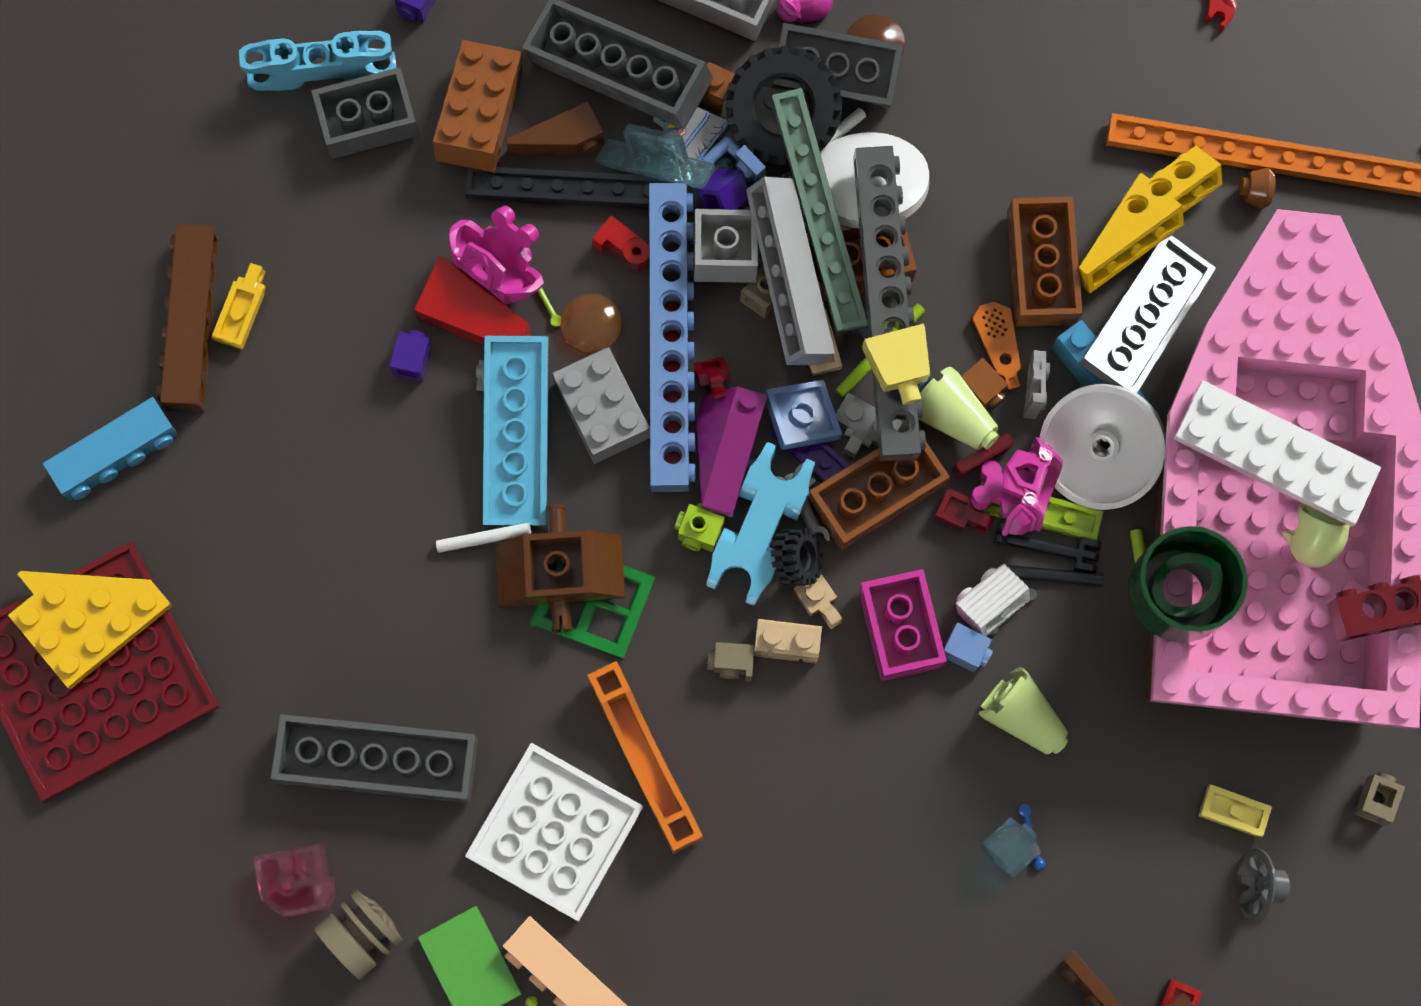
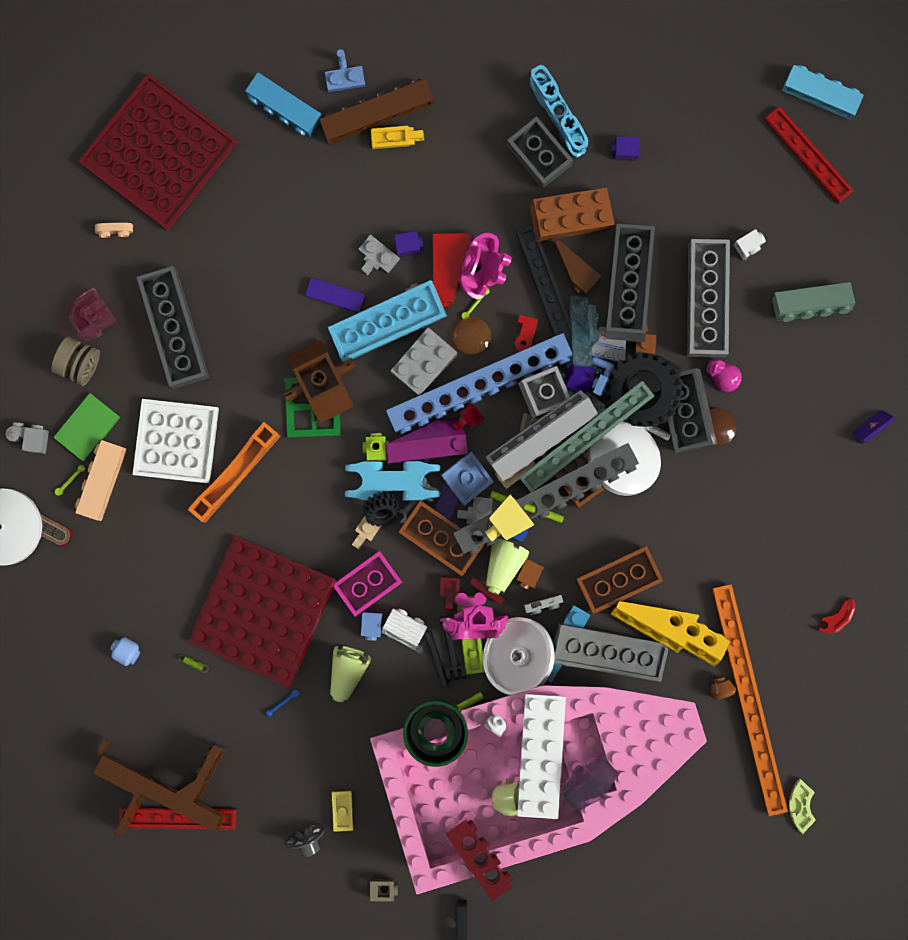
camera: 75 degrees right, 10 degrees up
(84, 618) = (183, 136): yellow wing -> none
(114, 345) = (345, 77): none -> medium blue plate
(171, 801) = (107, 229): none -> light nougat plate
(407, 409) = (377, 256): none -> light grey hinge
(438, 495) = (335, 295): none -> dark purple tile
(482, 537) = (321, 331): white bar -> none
(732, 660) = (309, 497): dark tan brick -> none
(787, 641) = (332, 523): tan brick -> none
(879, 804) = (262, 611): none -> dark red plate
(915, 951) = (193, 663): none -> lime piece
(1001, 345) = (560, 575): orange piece -> none
(1012, 846) = (270, 694): clear light blue brick -> none
(1205, 499) = (495, 724): none -> white plate
(1344, 400) = (589, 783): none -> clear purple brick

